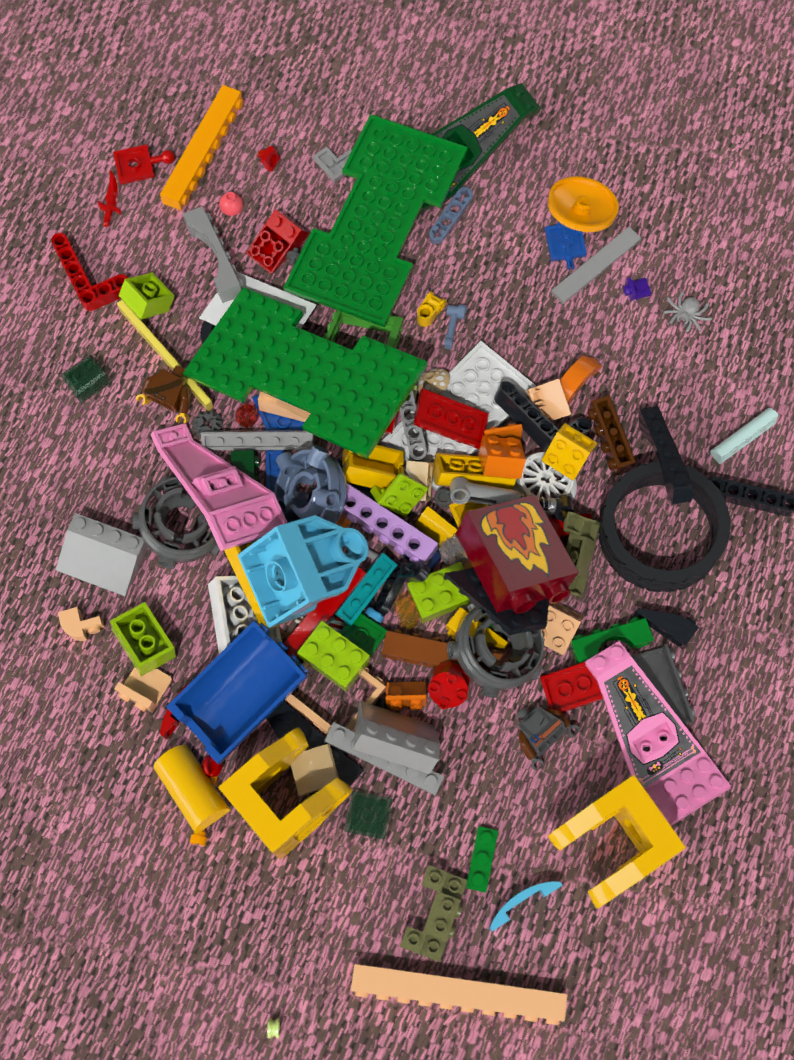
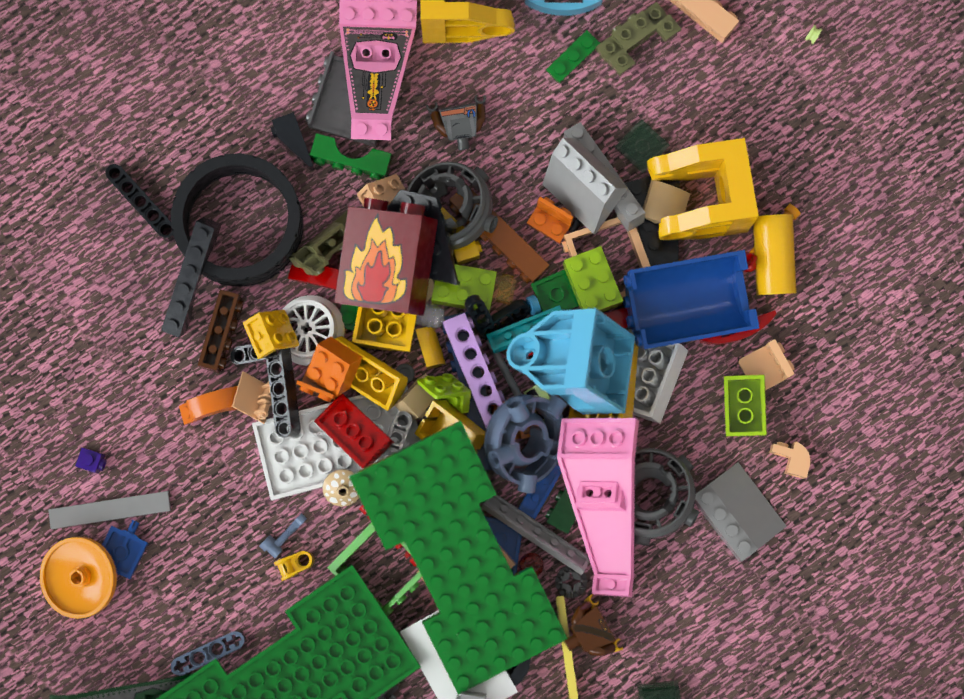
camera: 150 degrees left, 10 degrees up
(448, 685) = (511, 202): red brick -> none
(463, 491) = (390, 350): light grey piece -> none
(571, 688) = (411, 140): red tile -> none
(687, 311) = (63, 407): light grey animal -> none
(744, 435) = (103, 260): light aqua brick -> none

